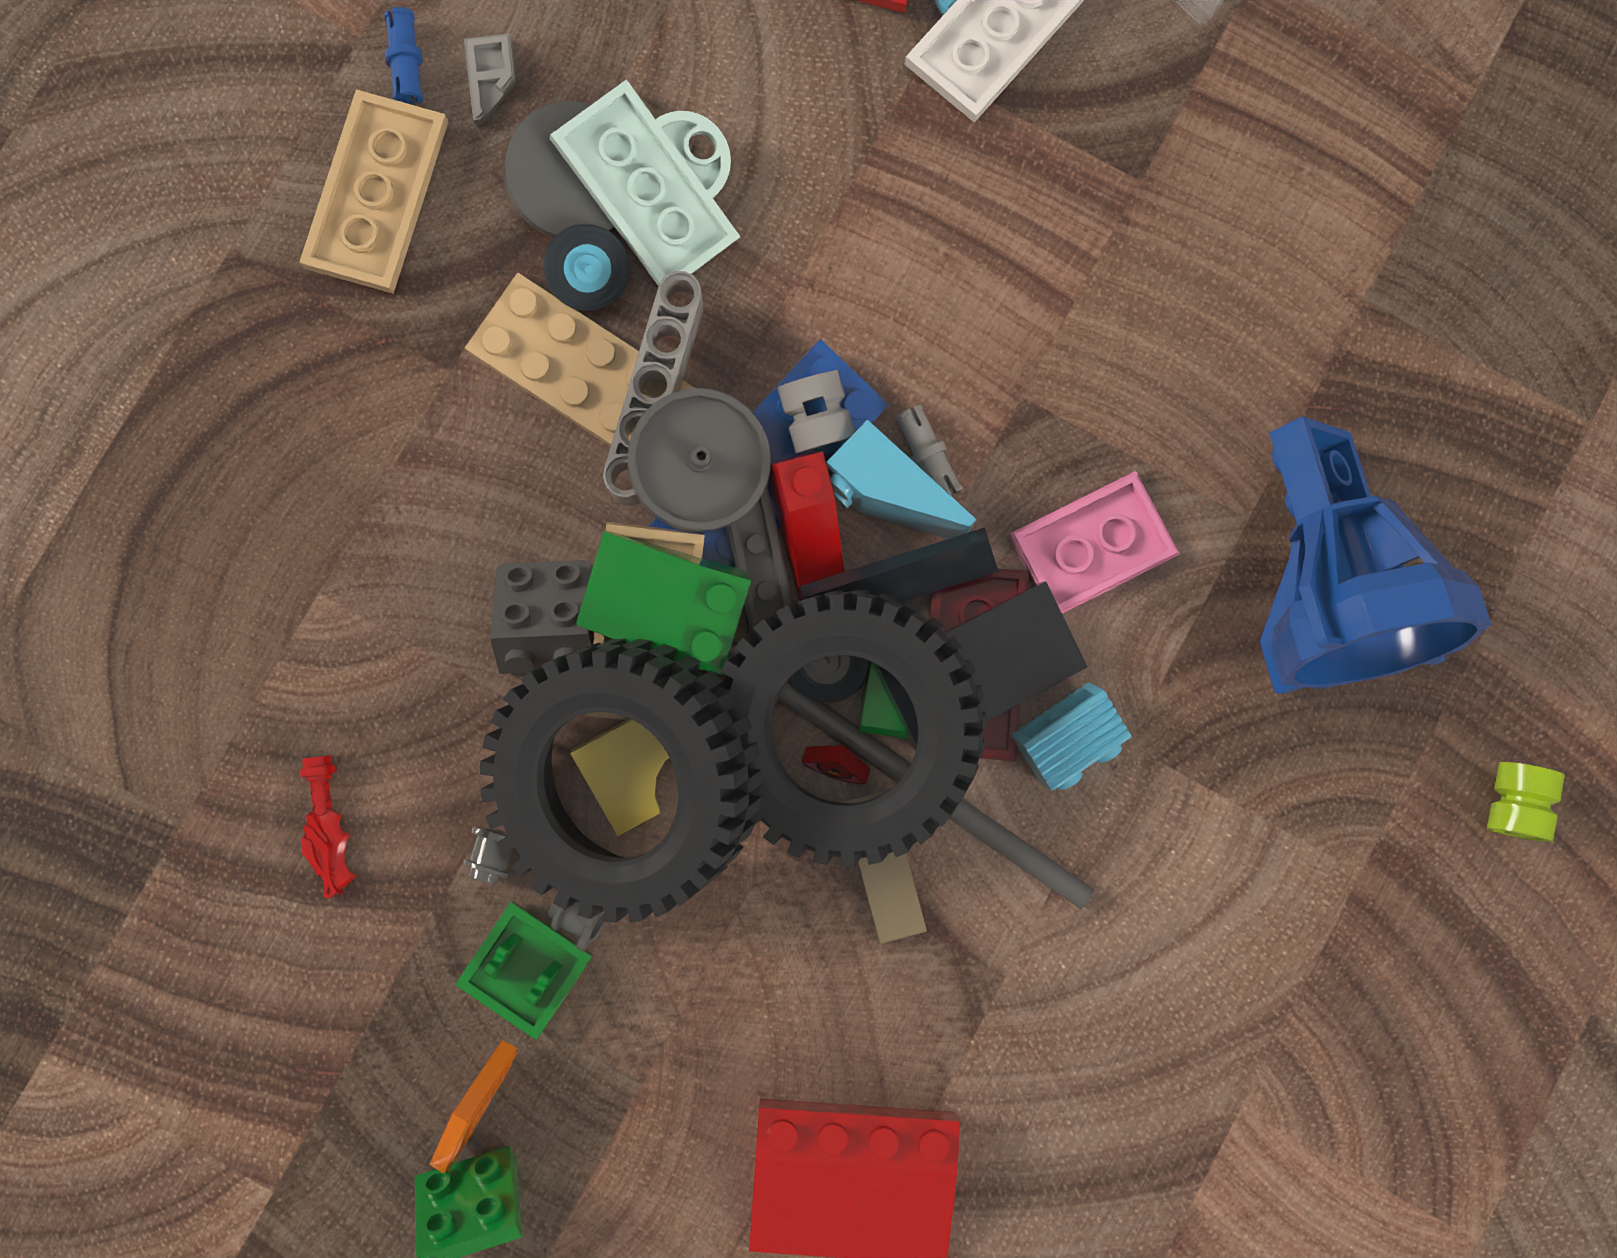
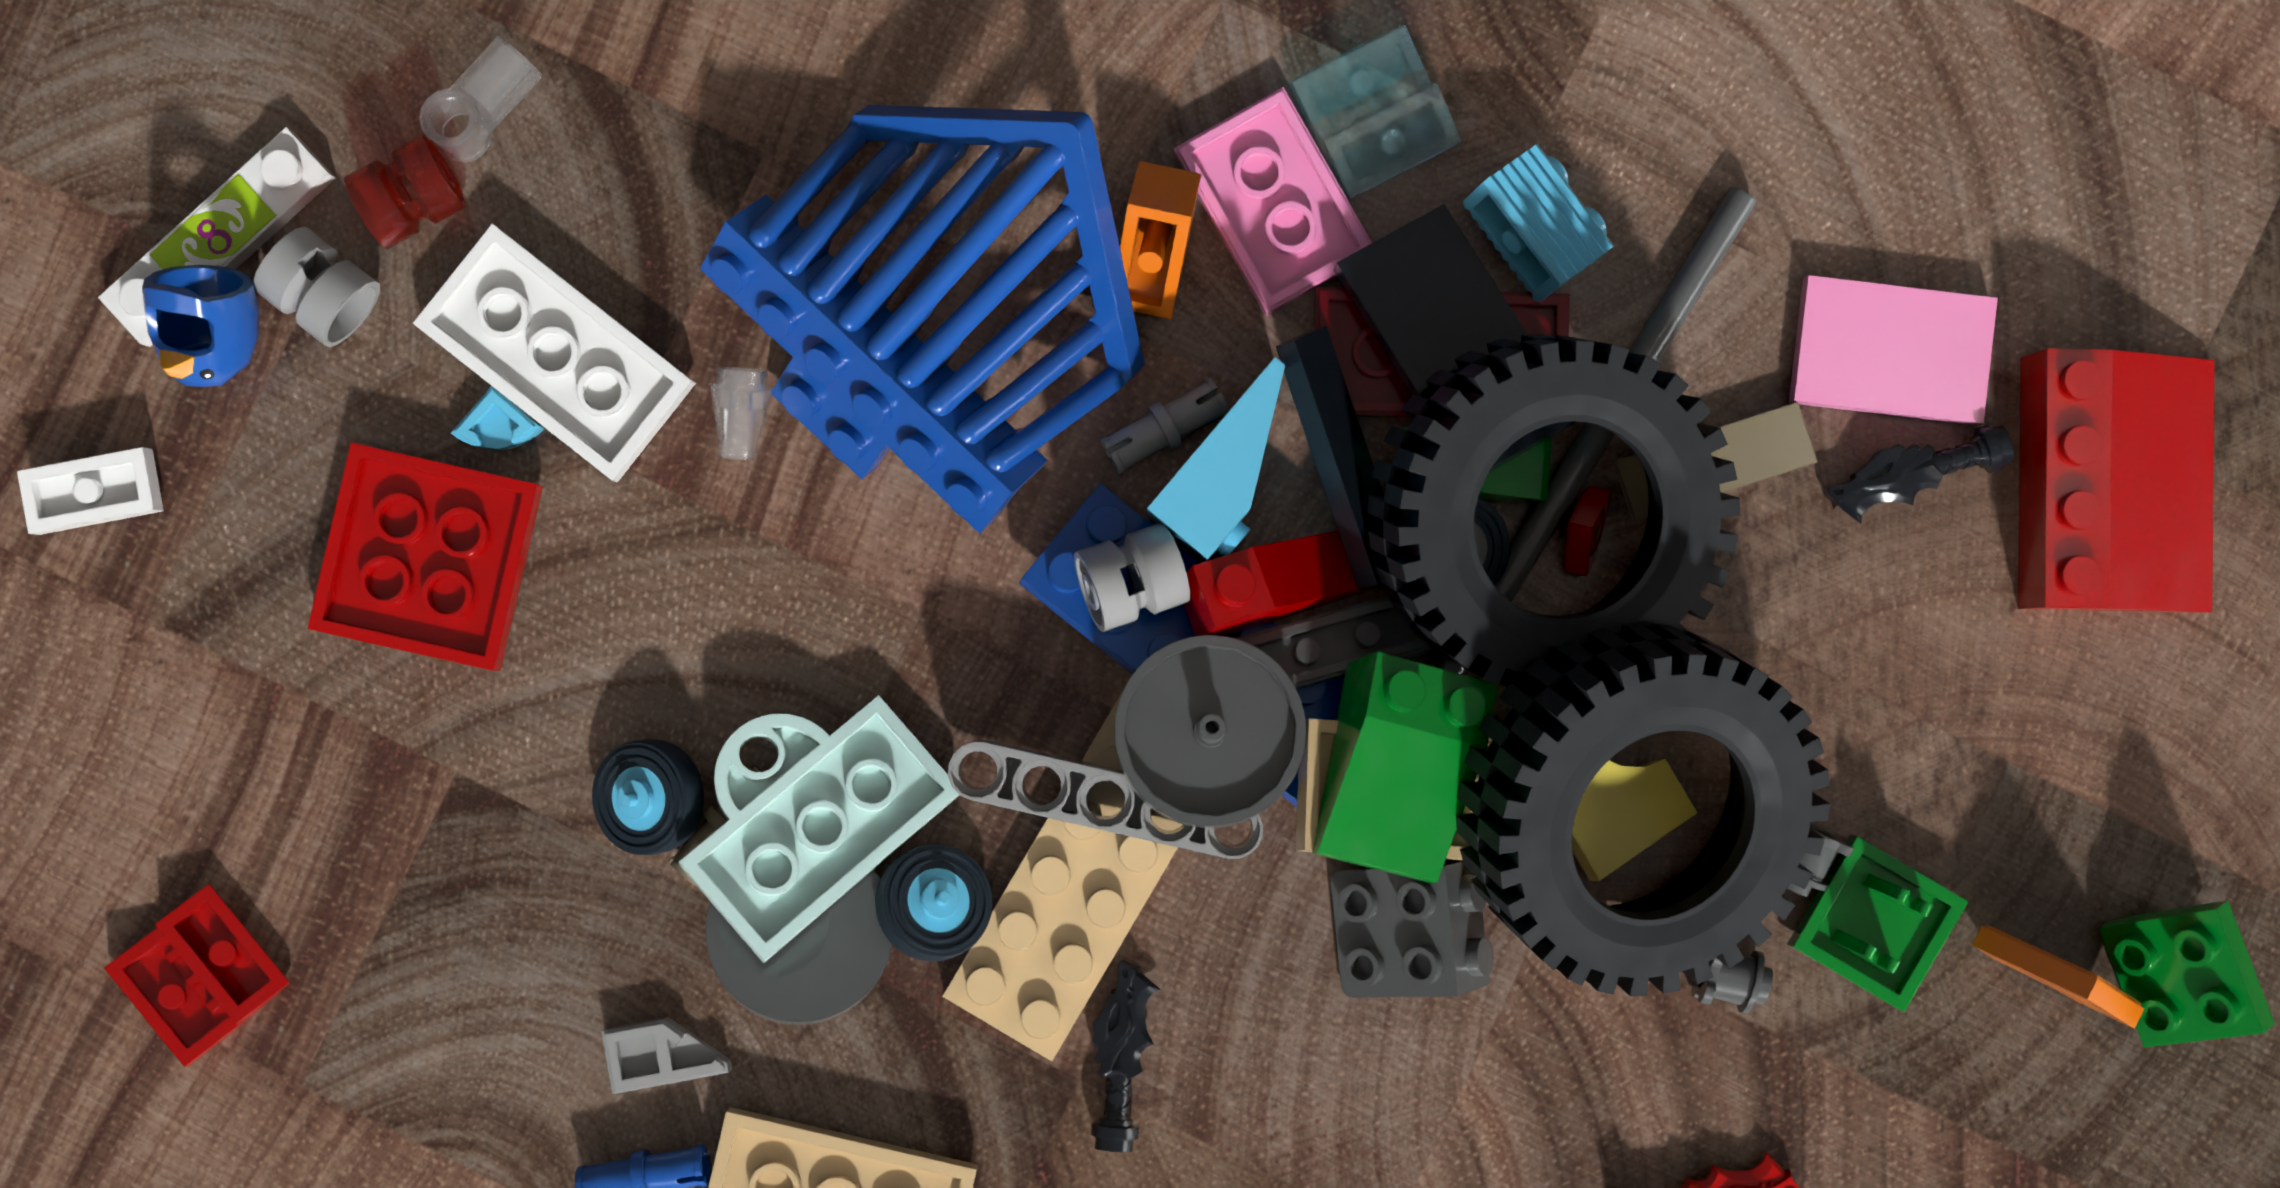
camera: 85 degrees left, 5 degrees up
(475, 398) = (1121, 1040): none -> black piece
(675, 71) = (648, 797): none -> black wheel
(868, 1008) = (1900, 474): none -> black piece
(955, 150) = (739, 409): none -> clear cone
(963, 1009) = (1893, 350): none -> bright pink tile
(983, 228) = (862, 371): none -> blue plate
(1069, 452) = (1157, 235): none -> orange slope
(1159, 622) = (1375, 111): none -> clear light blue slope

